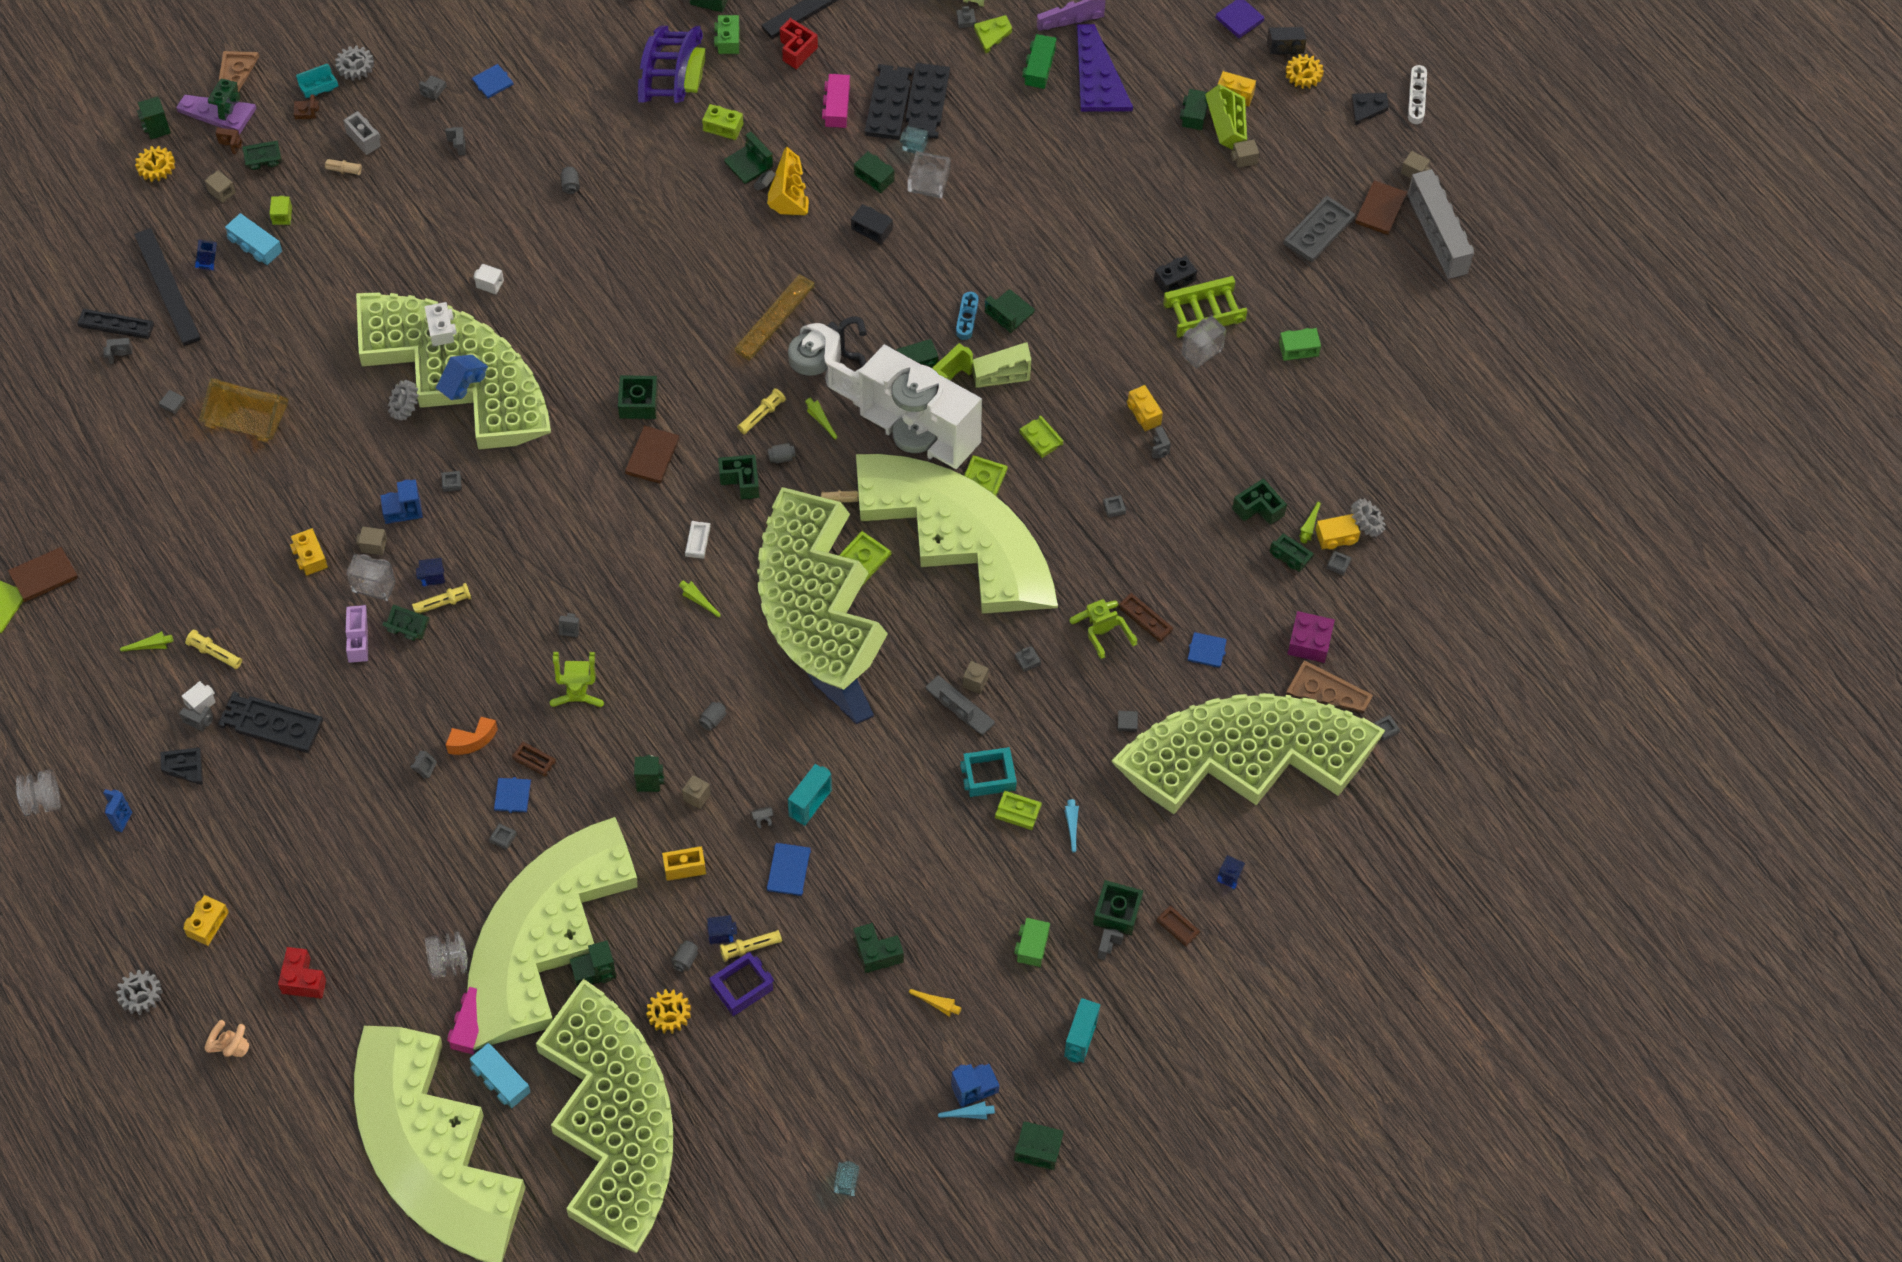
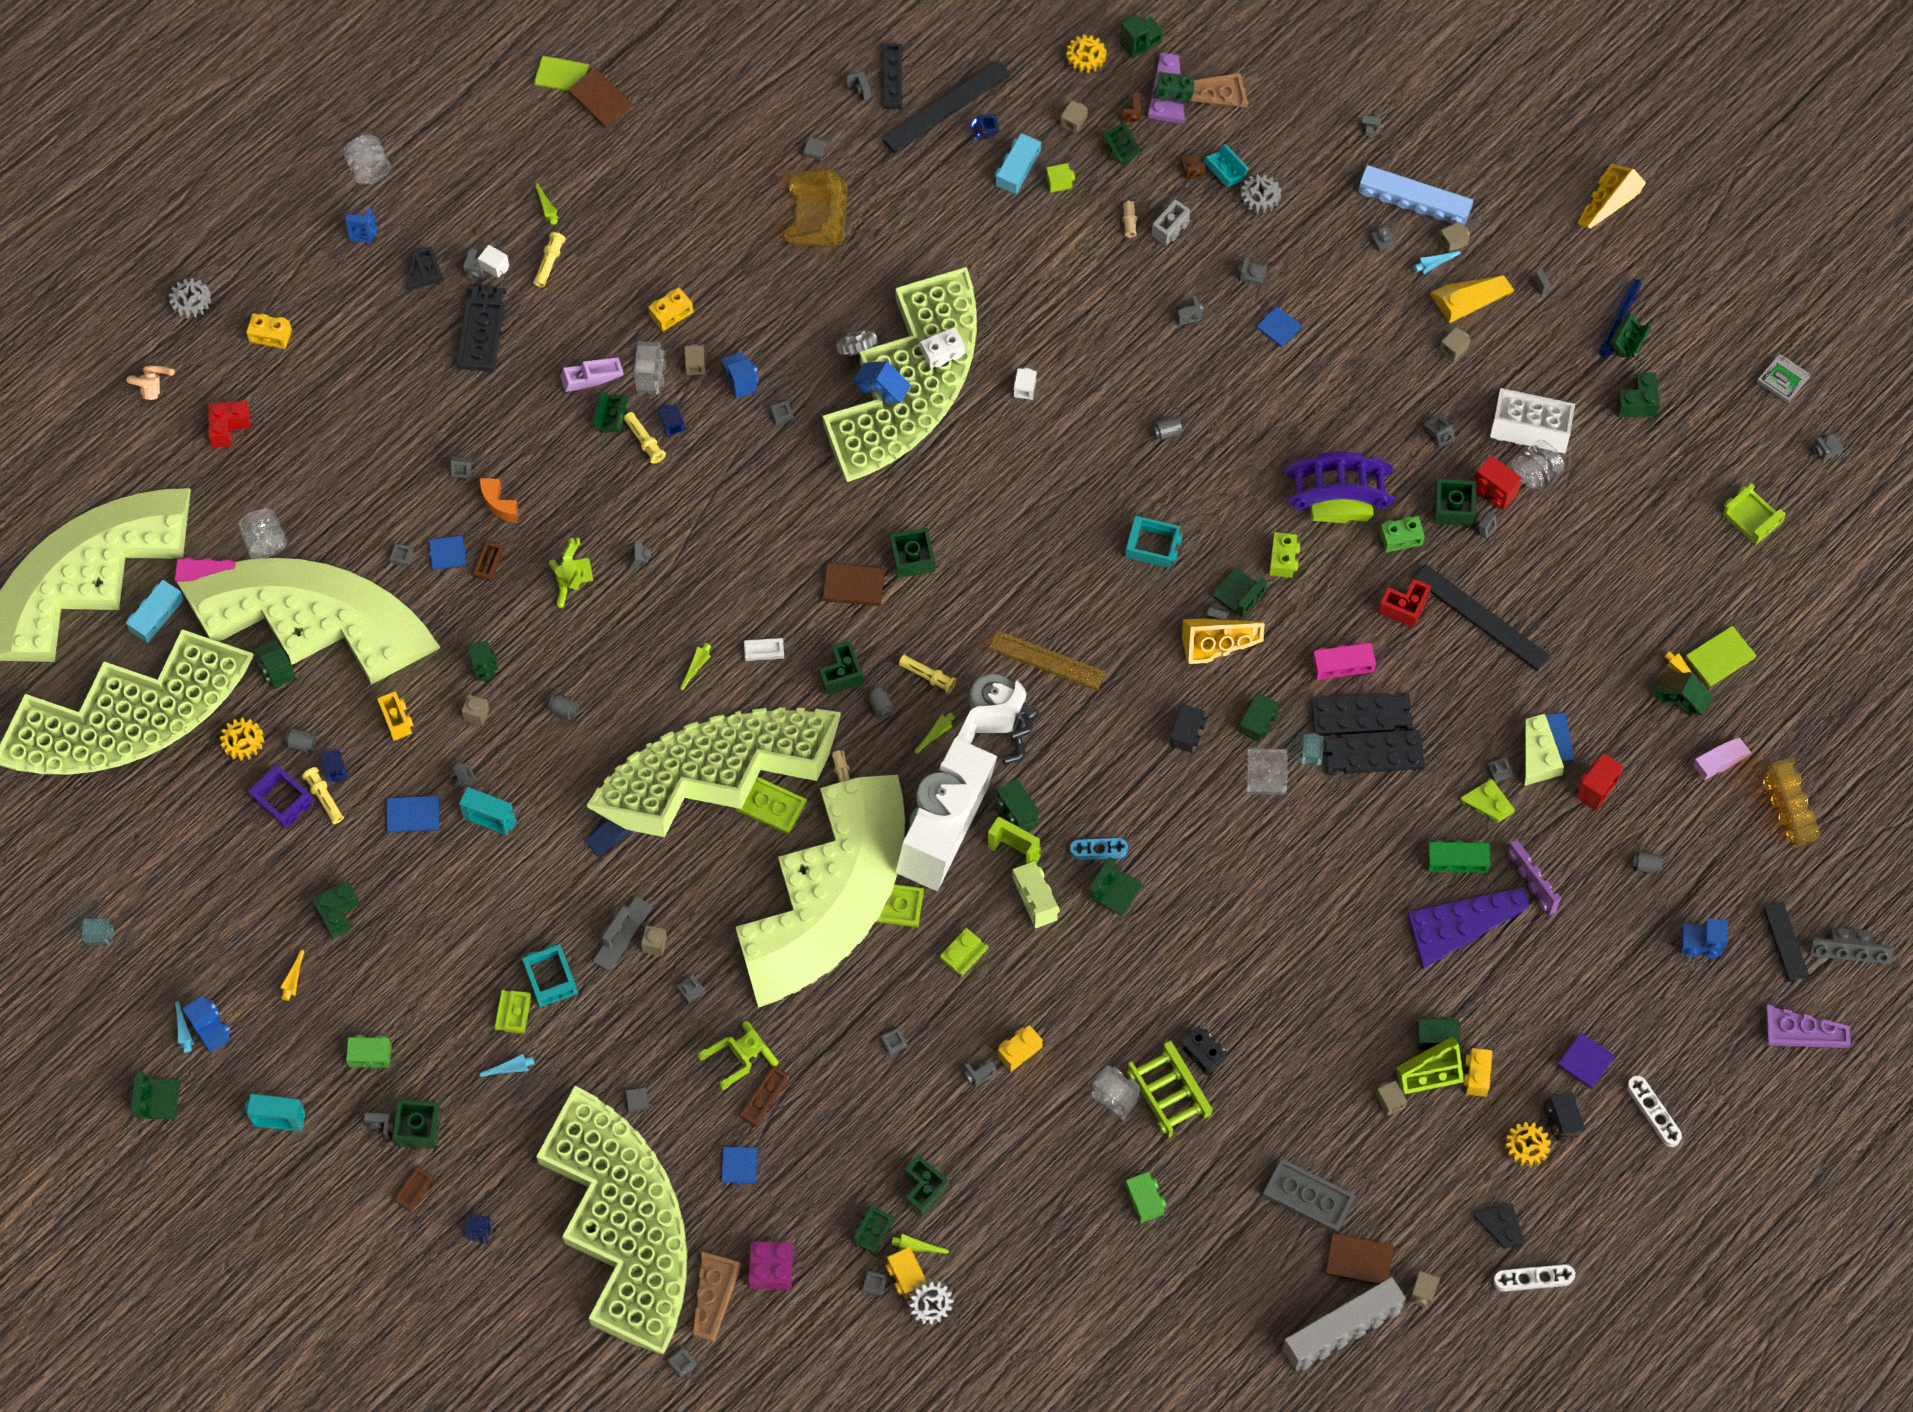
camera: 80 degrees right, 5 degrees up
(674, 227) = (1158, 528): none -> teal window

